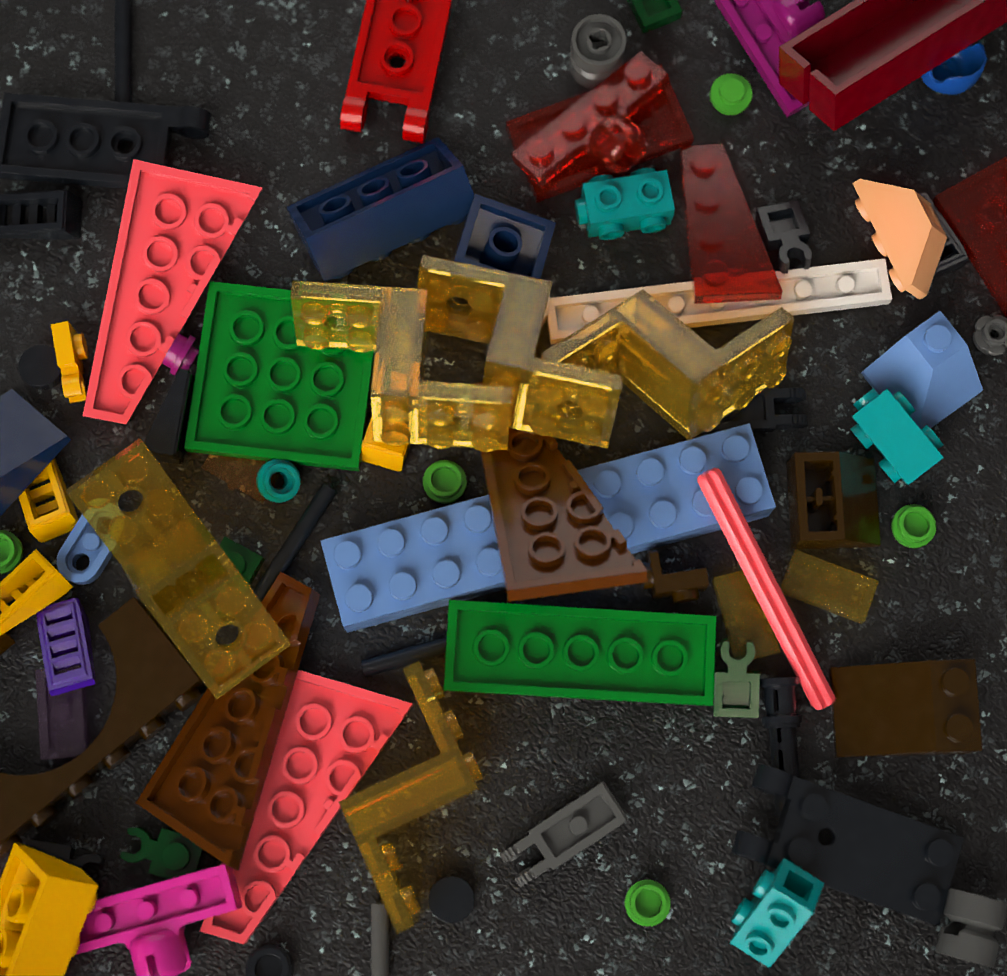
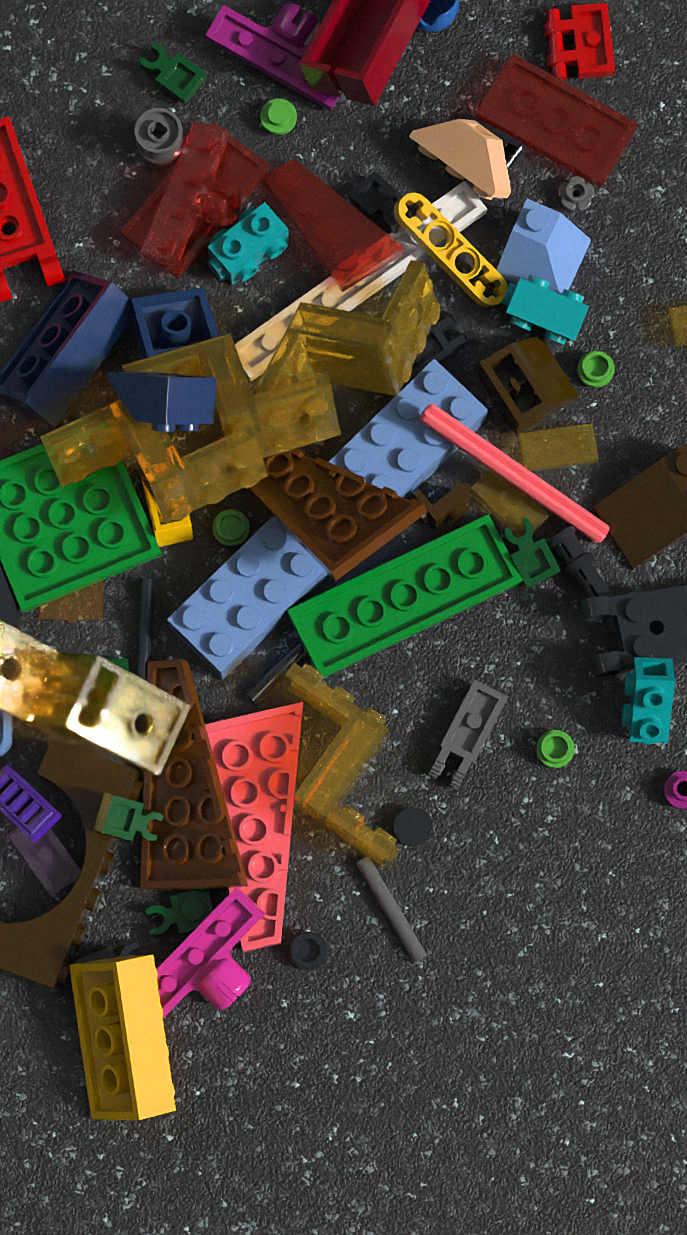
camera: 30 degrees left, 0 degrees up
(155, 721) = (125, 818): none -> dark green plate
(291, 480) = (114, 591): teal plate -> none
(440, 311) = (166, 399): none -> dark blue slope
(837, 319) = (455, 245): none -> yellow beam

